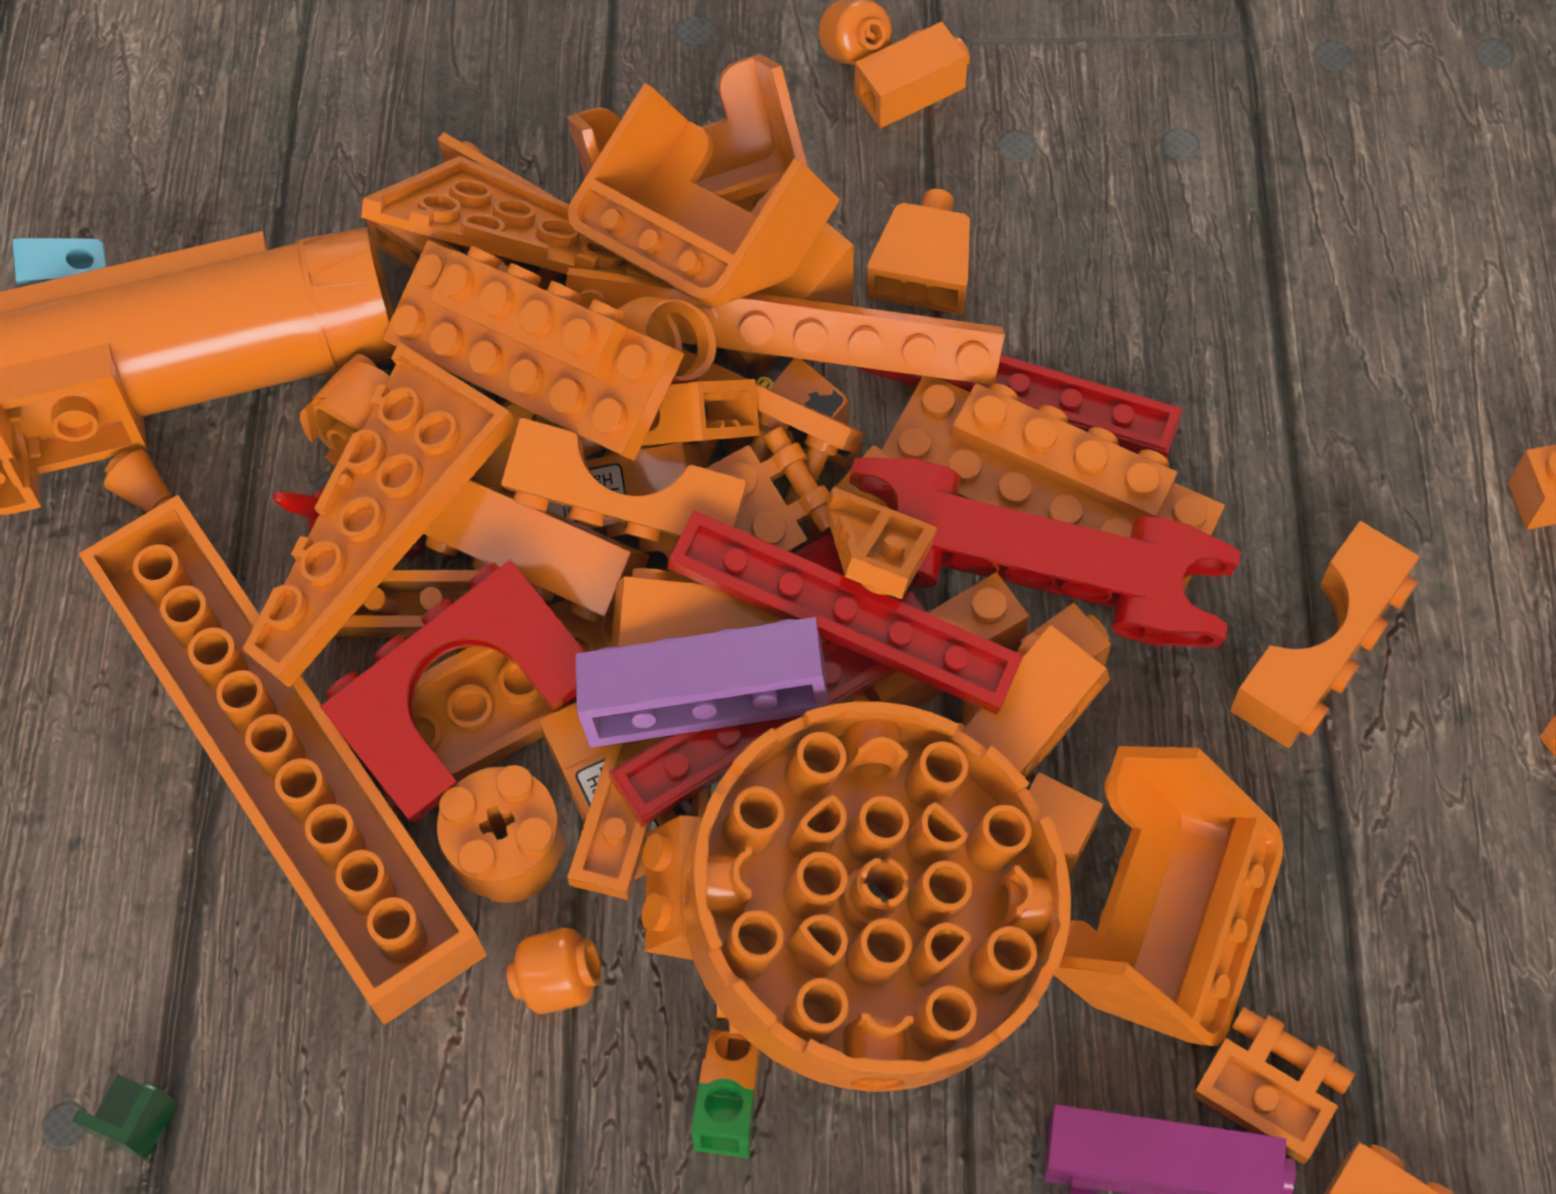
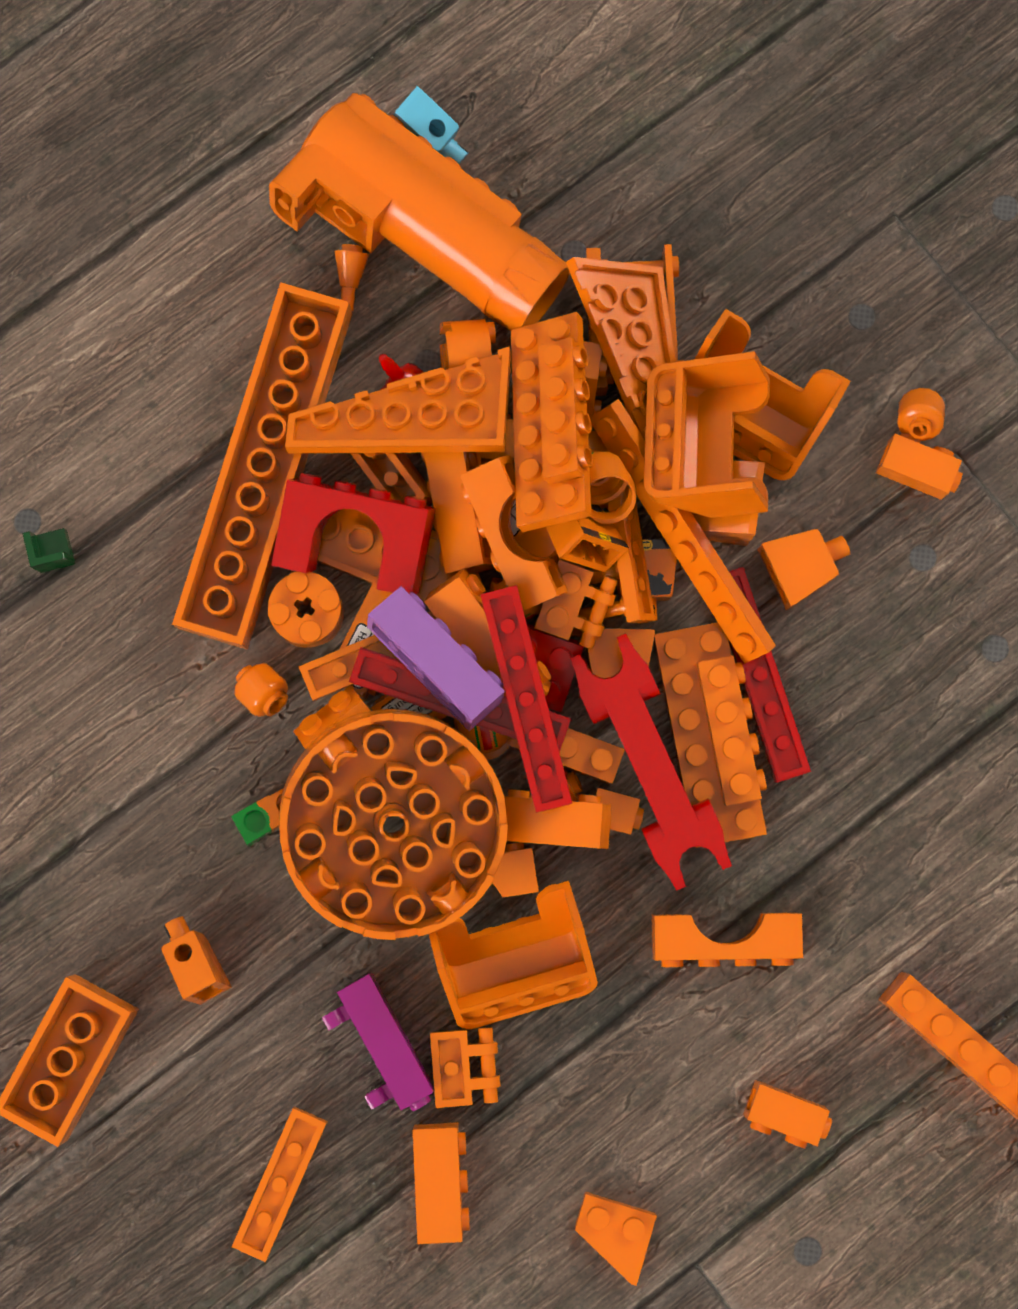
camera: 50 degrees right, 20 degrees up
(877, 543) = (576, 686): orange wing -> none

